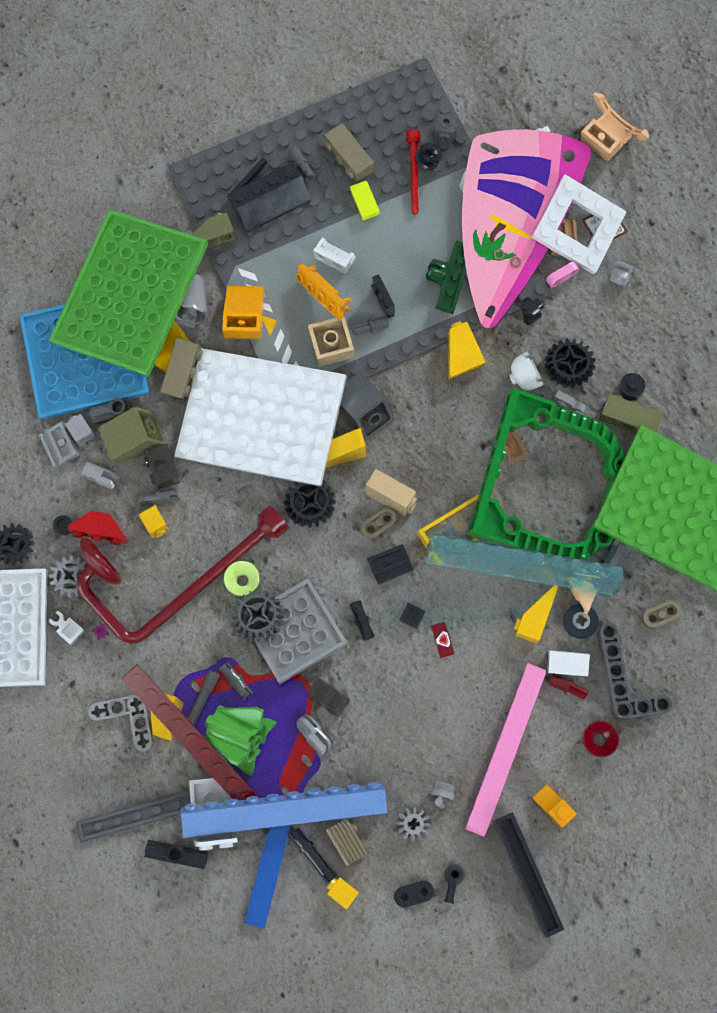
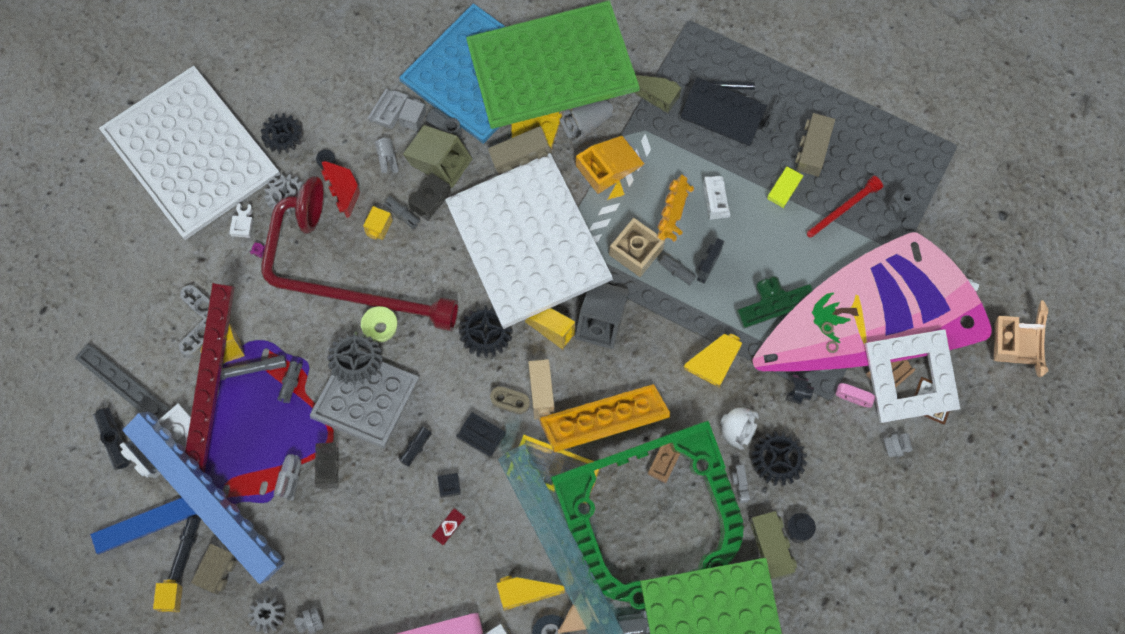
camera: 50 degrees right, 5 degrees down
(238, 734) = (240, 414): bright green brick -> none
(428, 156) = (866, 208): black piece -> none
(448, 463) = (604, 417): none -> light orange plate

